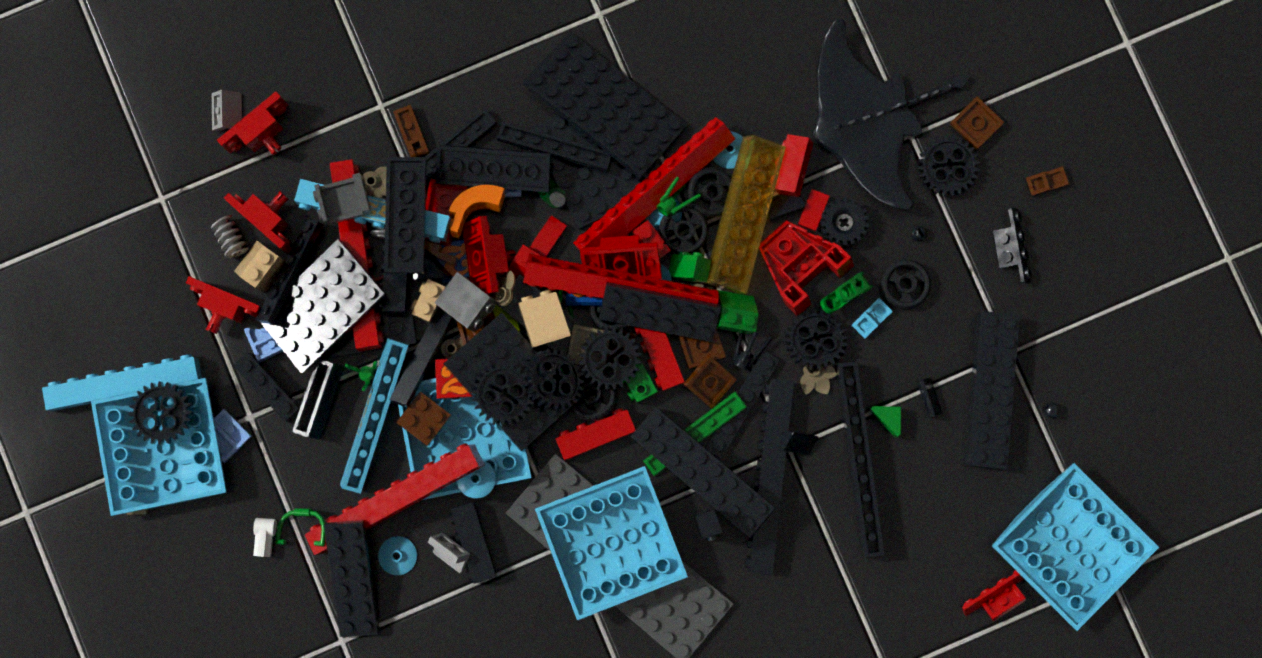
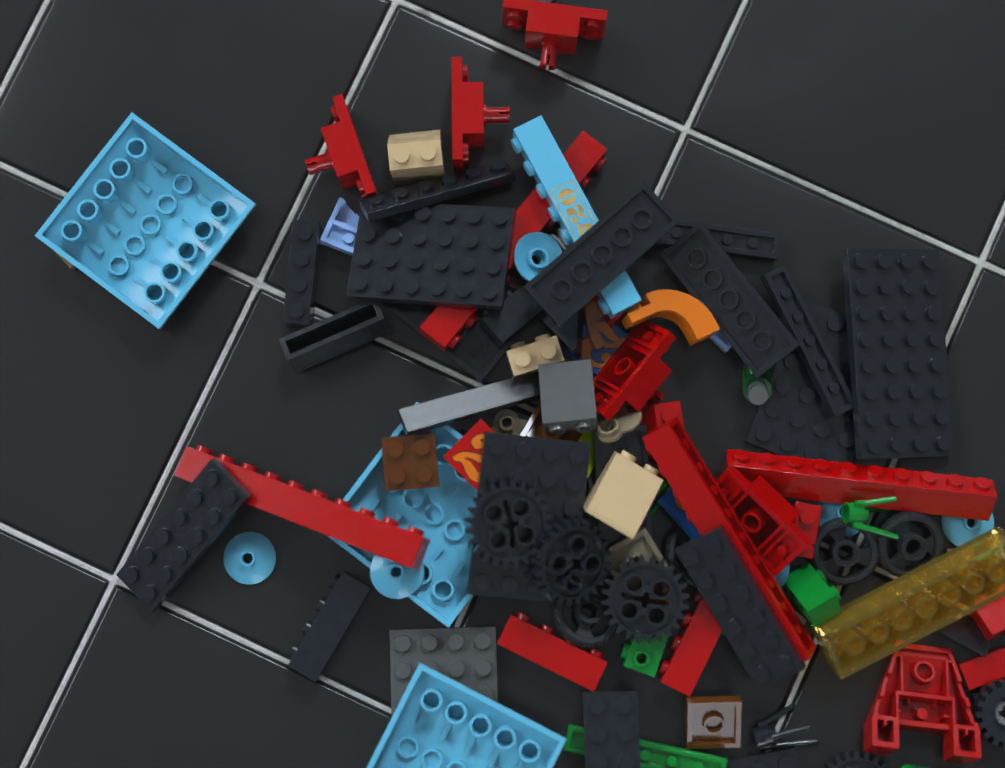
camera: 45 degrees right, 0 degrees up
(115, 383) = (172, 122): medium azure brick -> none
(178, 412) = (196, 208): black gear -> none
(227, 237) = (416, 97): light grey piece -> none
(230, 434) = (221, 279): light blue wing -> none
(264, 532) = (156, 401): white piece -> none
(301, 512) = (209, 425): green piece -> none
(342, 200) = (558, 177): dark grey panel -> none
(365, 373) = (404, 359): green plant -> none
(370, 244) = (538, 245): none -> medium azure dish
(373, 415) = (368, 407): medium azure brick -> none
(378, 188) = (606, 201): dark tan plate -> none
(411, 131) = (689, 181): reddish brown plate -> none
(442, 196) = (653, 274): red tile -> none
(449, 551) = (299, 610): light grey panel -> none
(548, 236) = (709, 417): red slope -> none
(696, 350) = (733, 680): reddish brown plate -> none
(737, 313) = (811, 690): green slope -> none

